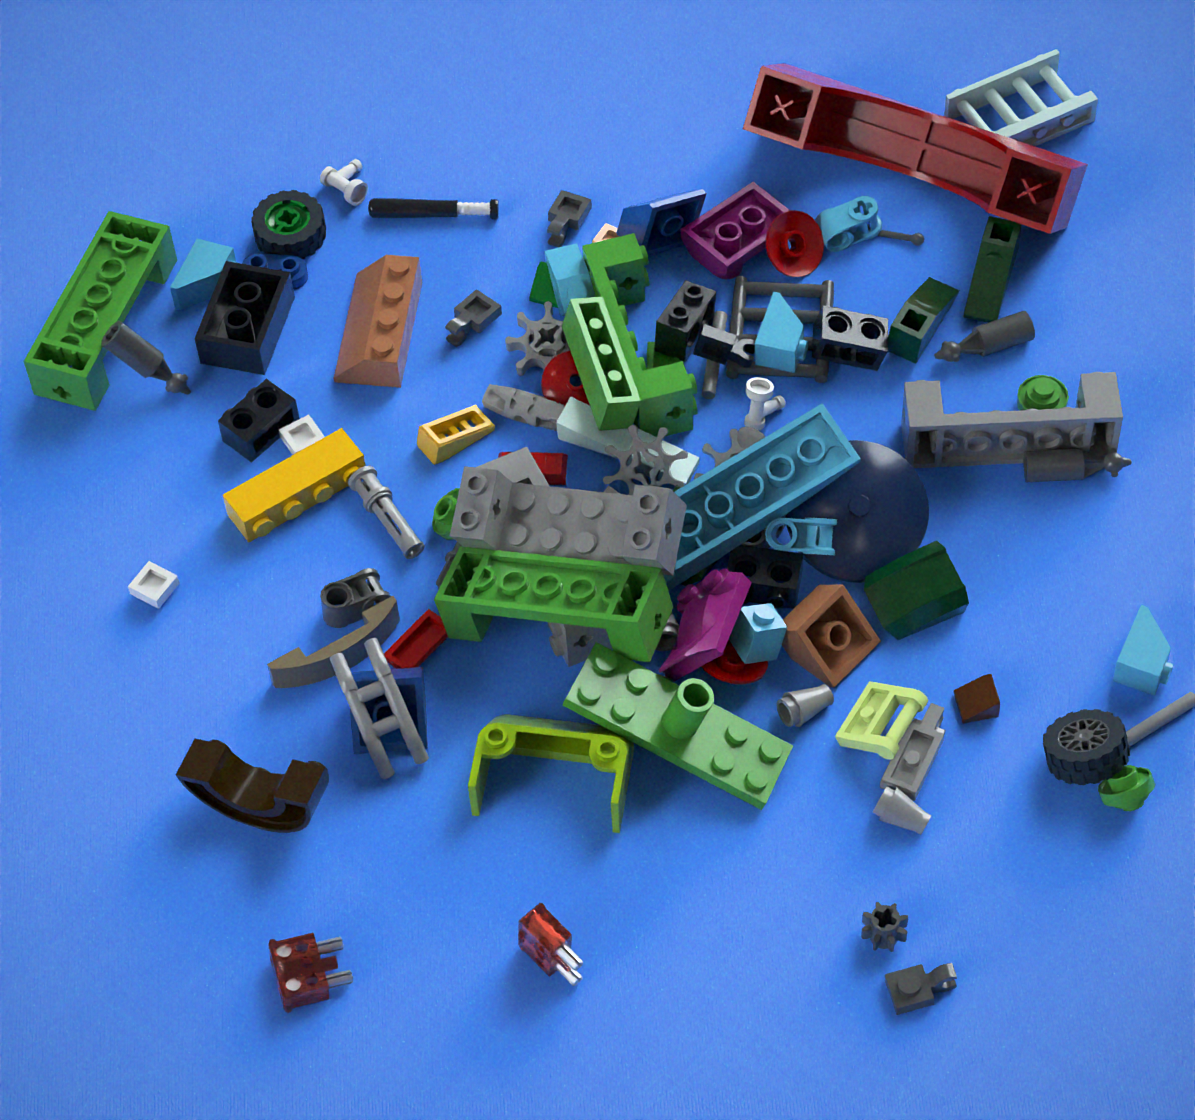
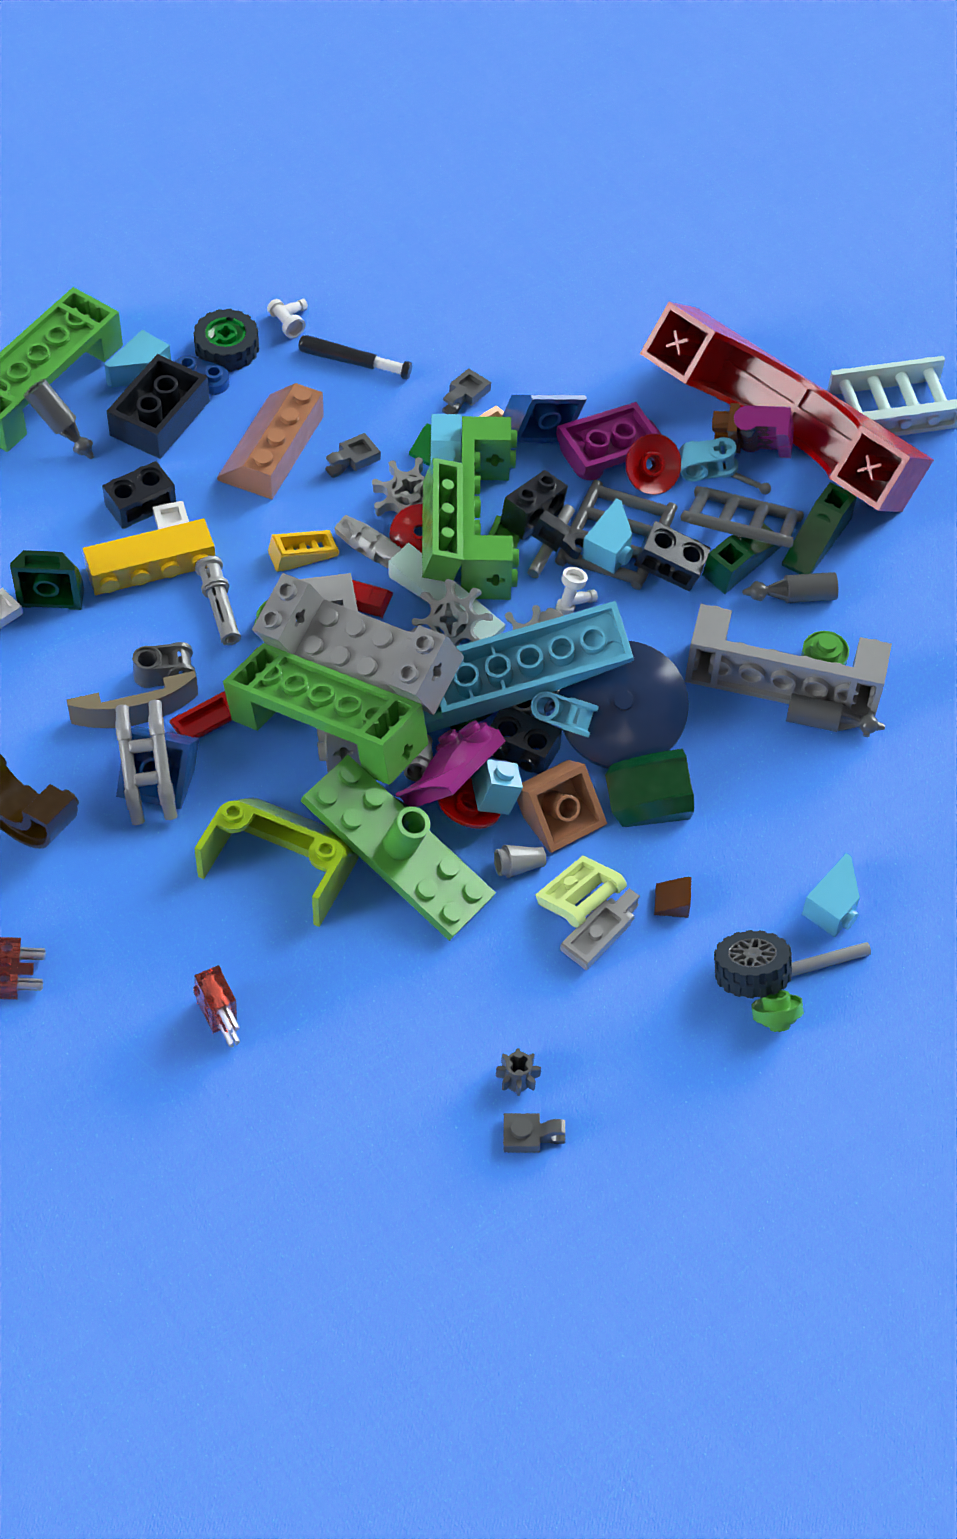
camera: 10 degrees right, 0 degrees up
(197, 540) = (47, 580): none -> dark green slope
(891, 177) = (756, 428): none -> hips
(894, 290) = (750, 531): none -> dark grey bar
(901, 811) = (569, 974): light grey cone -> none

